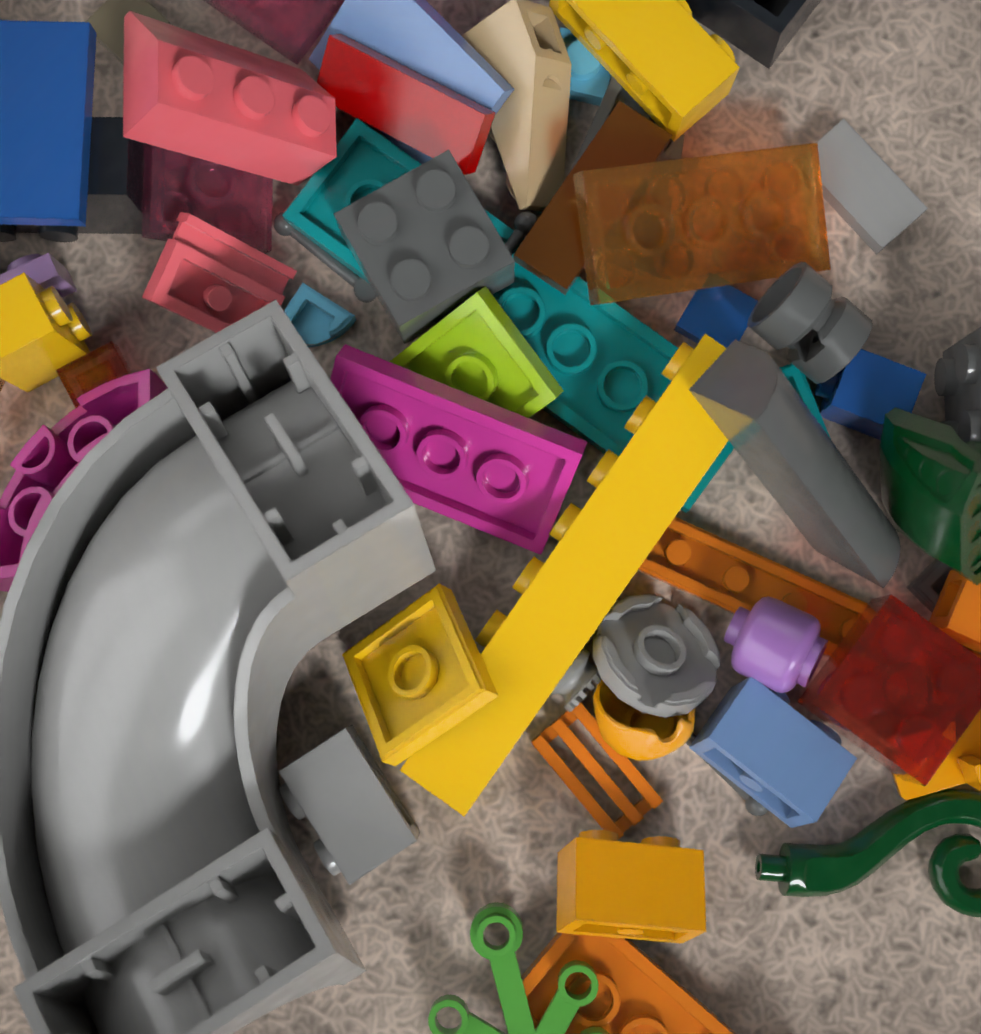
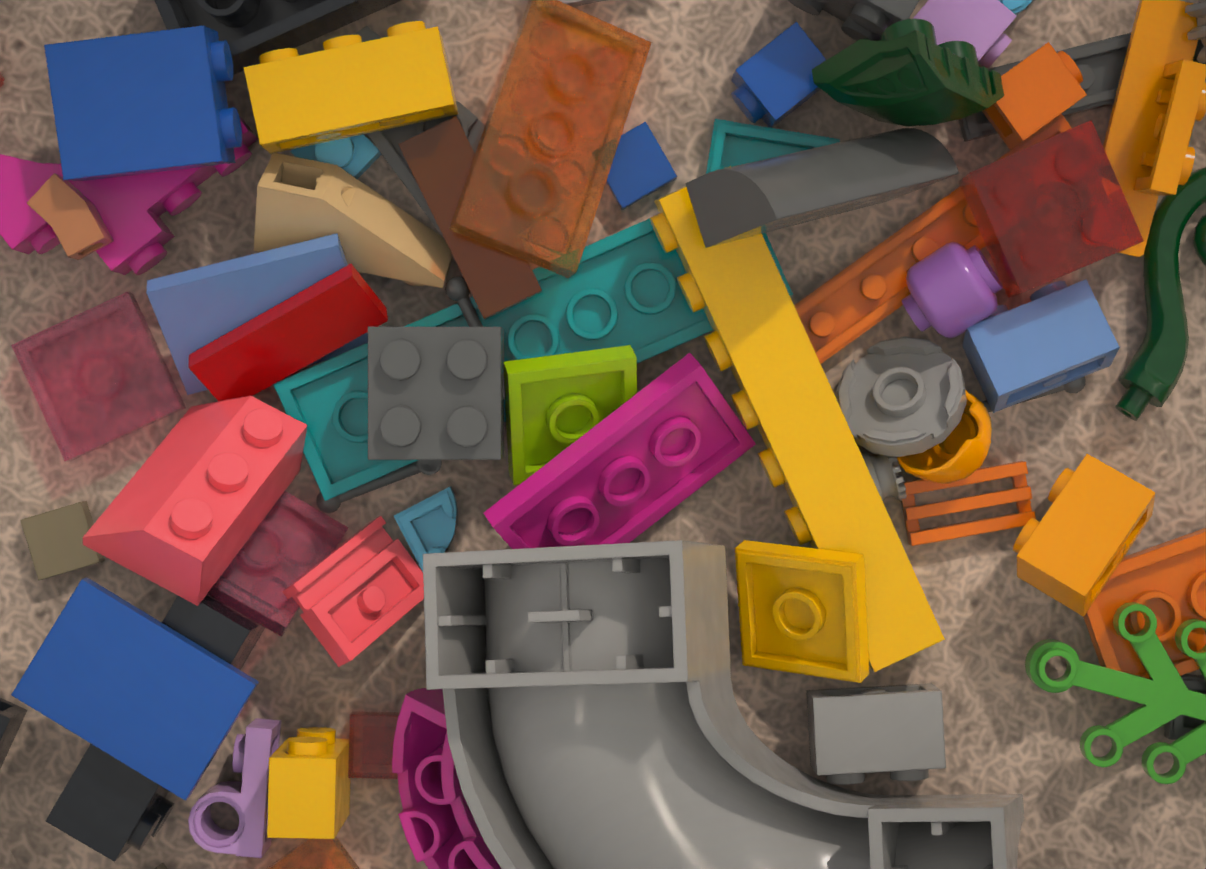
camera: 65 degrees left, 5 degrees up
(818, 330) = (702, 92): dark grey wheel -> none

